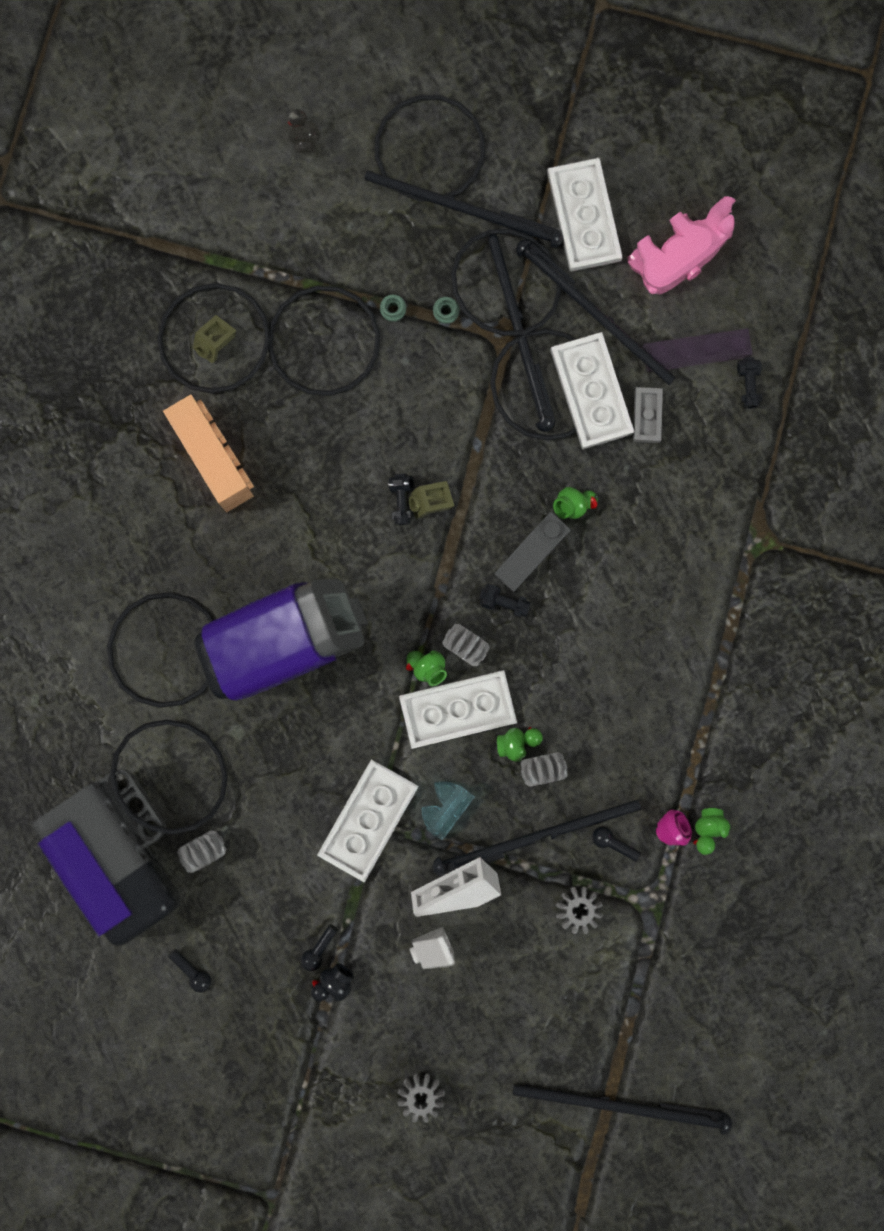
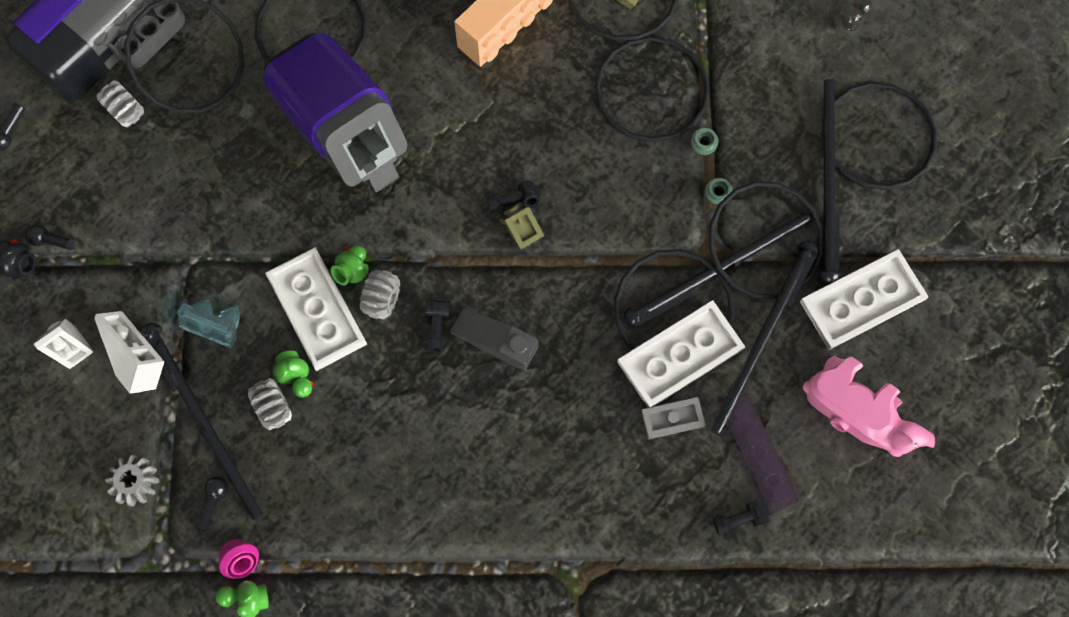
camera: 75 degrees right, 10 degrees down
(367, 820) = (185, 251): white tile -> none
(573, 503) = (554, 364): bright green animal -> none

